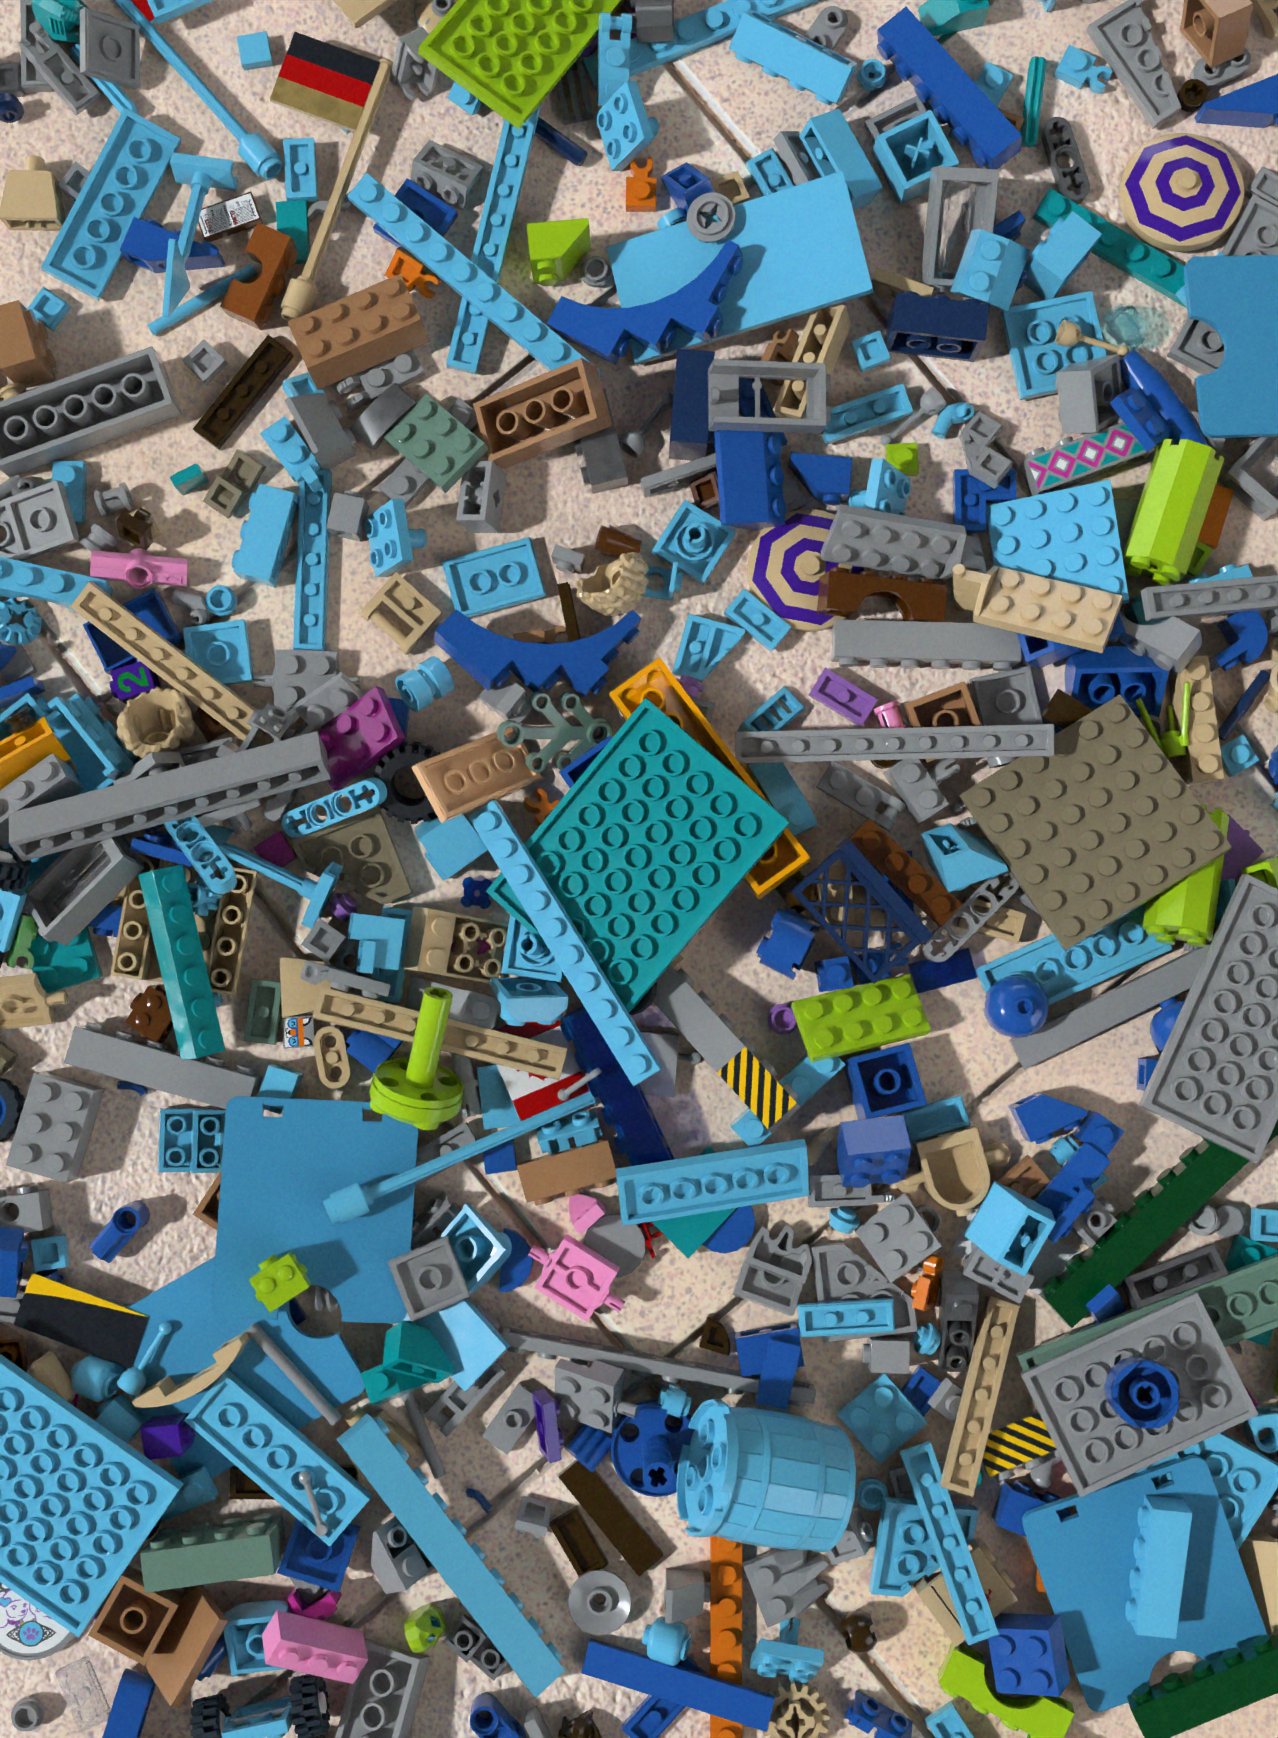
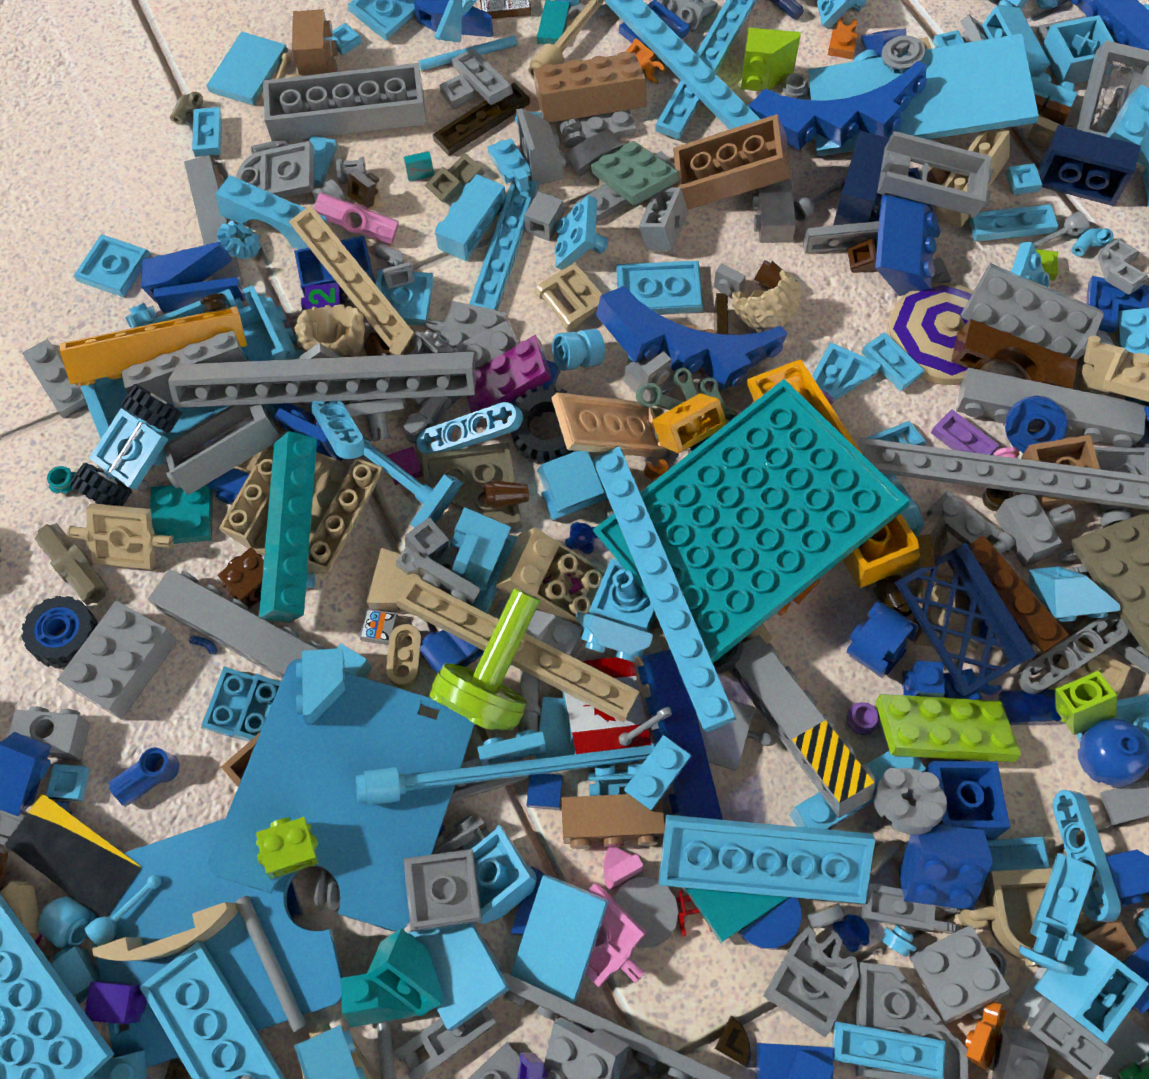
camera: 15 degrees right, 20 degrees down
(24, 935) = (154, 479): bright green plate -> none
(202, 897) = (327, 478): medium azure gear -> none
(207, 633) = (398, 275): none -> light grey slope
(221, 600) = (418, 257): medium azure plate -> none
(229, 337) = (482, 76): none -> light grey plate
(237, 726) = (402, 342): none -> tan plate
(253, 301) = (533, 28): dark orange arch -> none
(263, 1012) = (349, 600): sand green plate -> none
(264, 1117) = (322, 681): none -> medium azure slope
(343, 906) = (450, 520): medium lavender plate -> none
(388, 871) = (504, 494): none -> reddish brown cone
(447, 1136) = (524, 745): none -> medium azure plate
(543, 1290) = (559, 938): none -> medium azure tile
(559, 755) = (689, 422): none -> light orange brick
(600, 1126) = (657, 773): none -> medium azure plate
(672, 582) = (817, 316): medium azure bracket -> none
(694, 542) = (844, 290): medium azure plate -> none
(775, 1213) = (825, 915): none -> light grey tile
(806, 1216) = (852, 931): none -> clear blue plate
(821, 836) = (932, 539): none -> dark brown tile
(821, 1119) = (922, 787): none -> light grey plate
(823, 476) = (967, 257): blue slope -> none
(896, 232) = (1053, 98): none -> medium azure hips
(906, 658) = (1035, 408): none -> blue tile
(974, 965) = (1086, 702): none -> lime head
(976, 1177) = (1059, 914): none -> medium azure piece
(984, 1063) = (1090, 852): none -> medium azure beam

